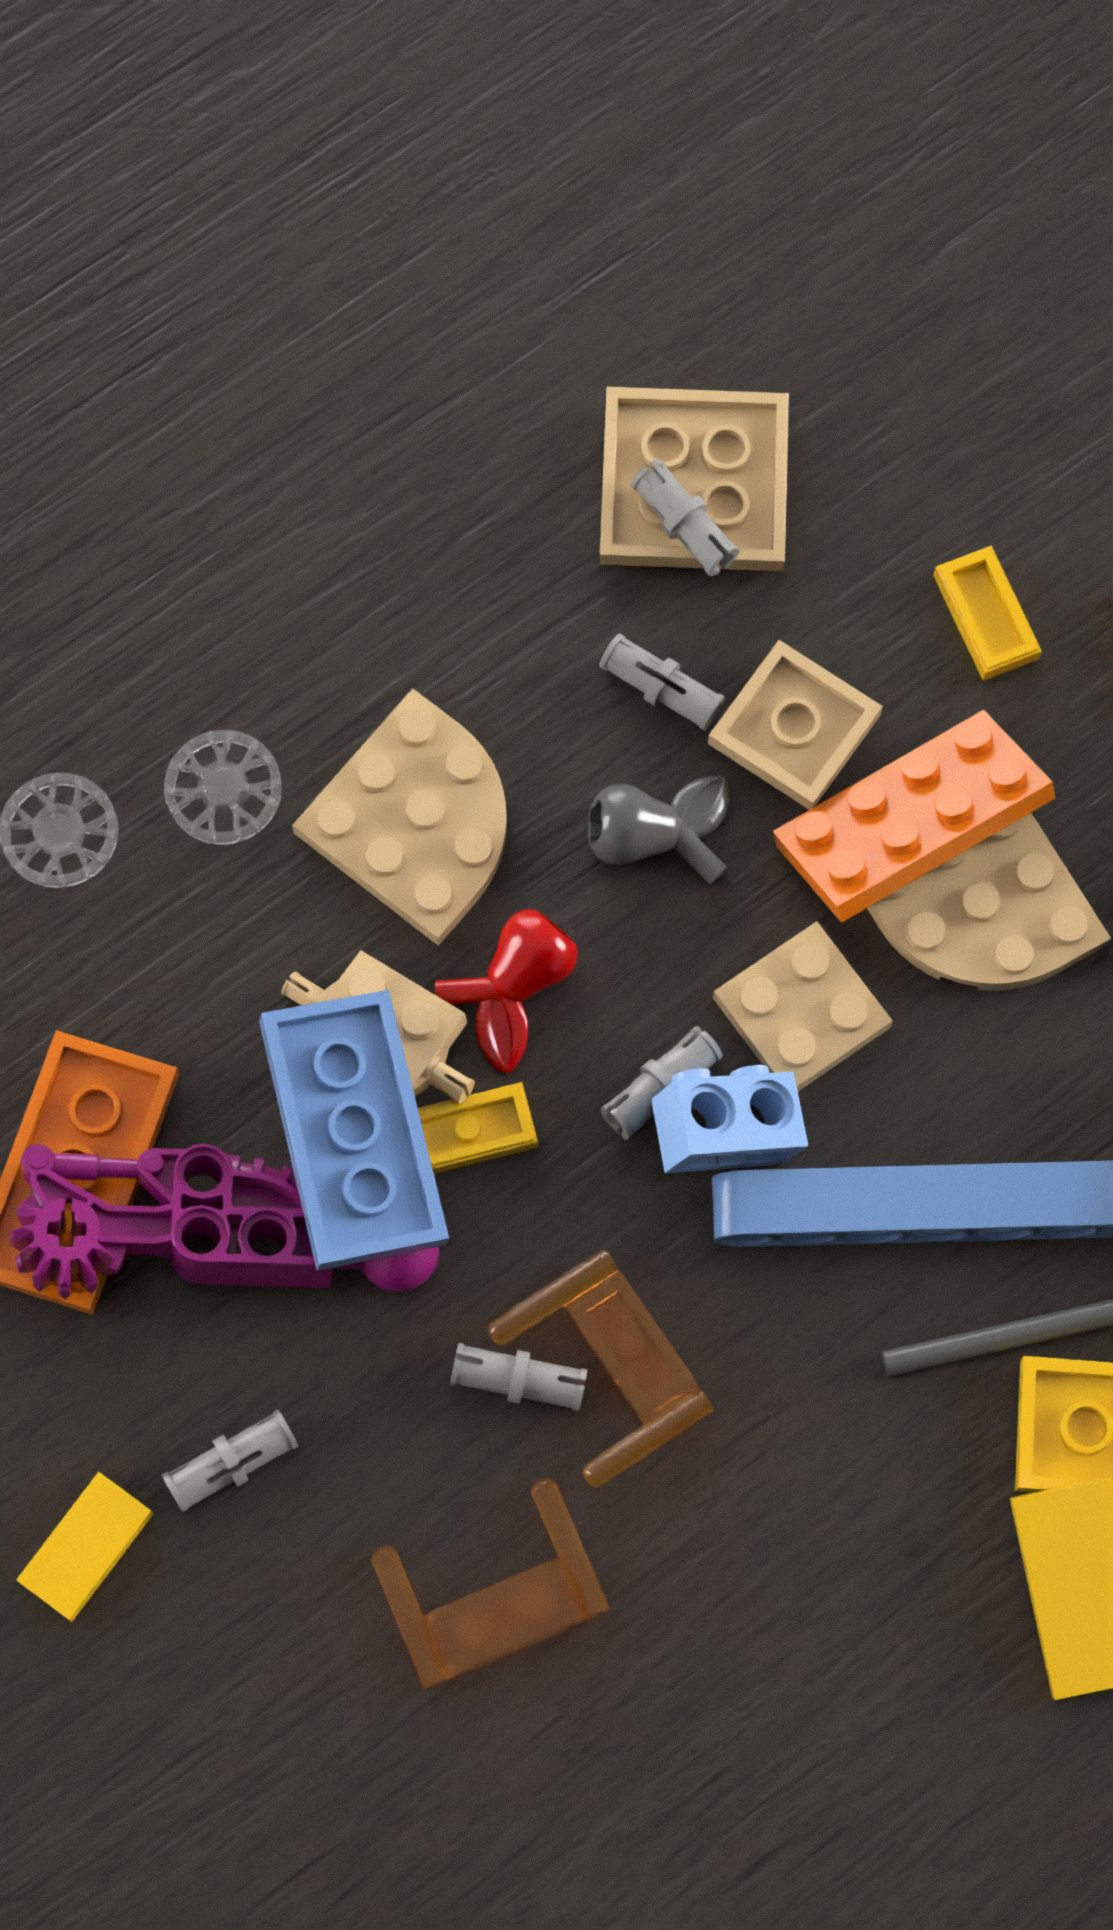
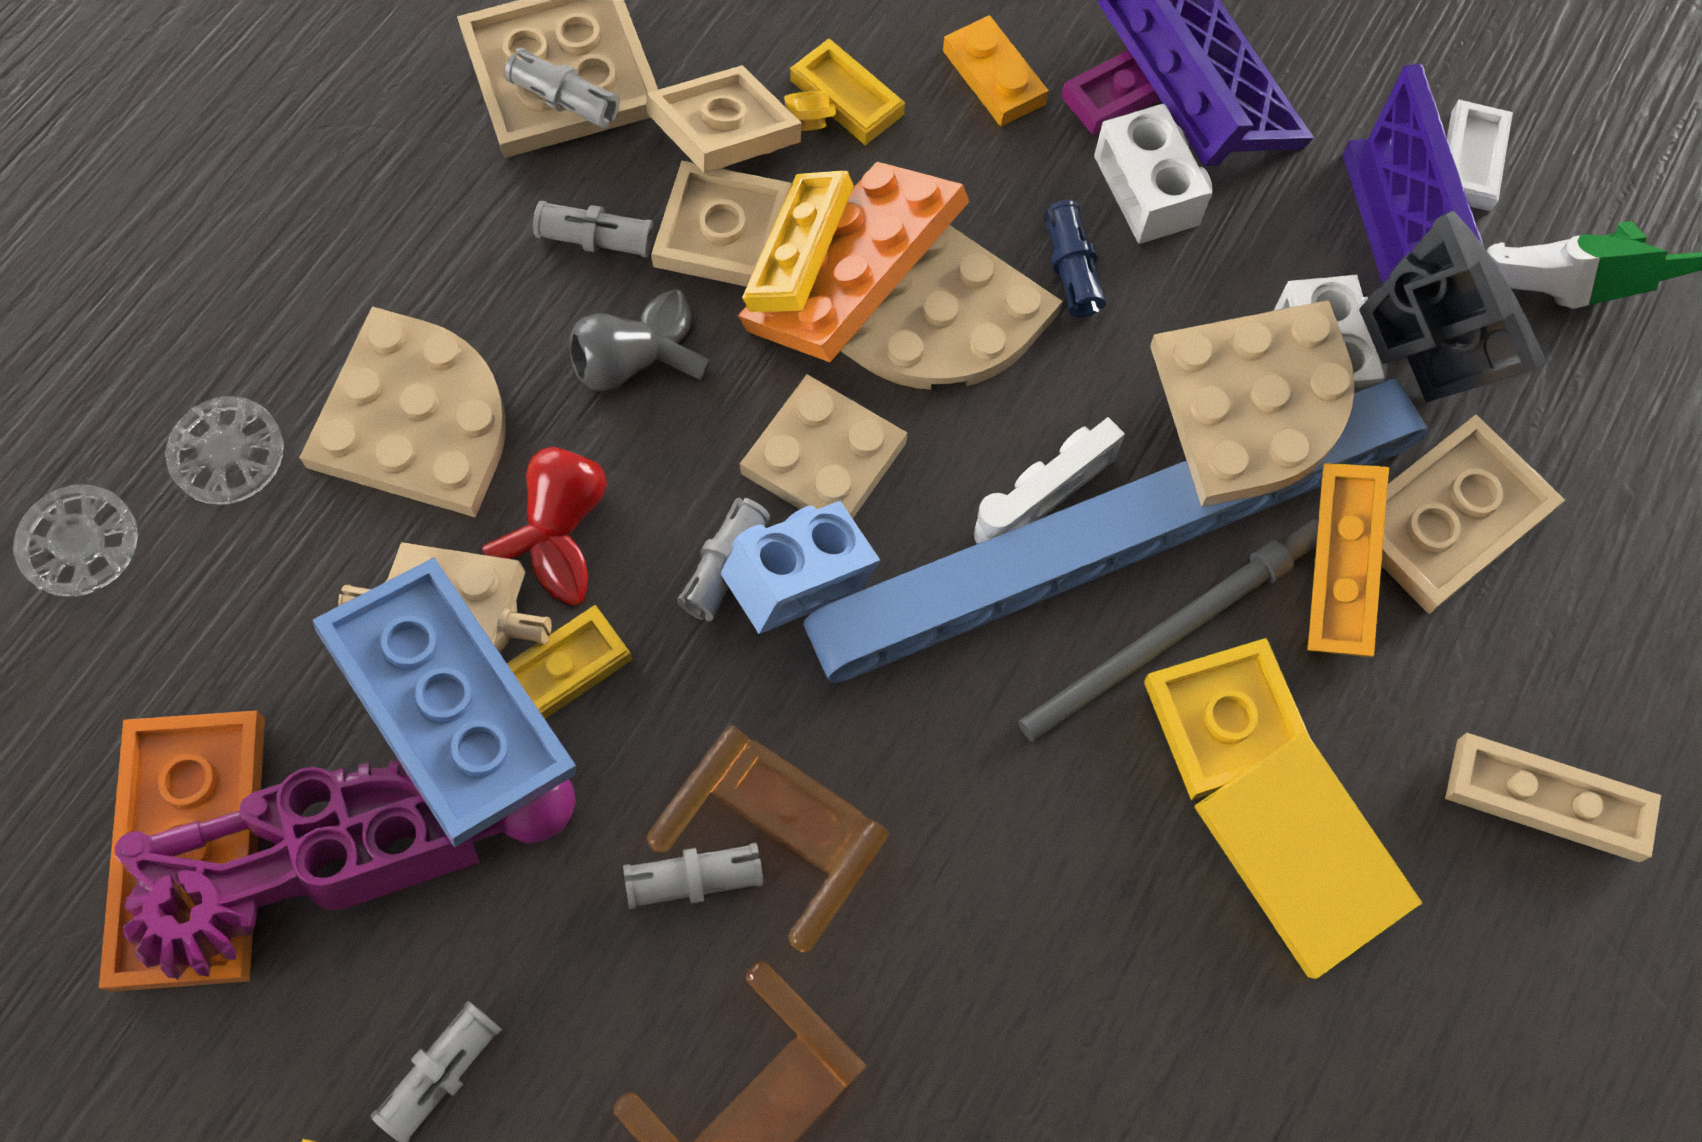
camera: 25 degrees left, 5 degrees down
(839, 607) = (723, 118): none -> tan plate
(862, 778) = (798, 242): none -> yellow tile
(934, 624) = (810, 108): none -> yellow plate
(1008, 1130) = (1047, 486): none -> white plate

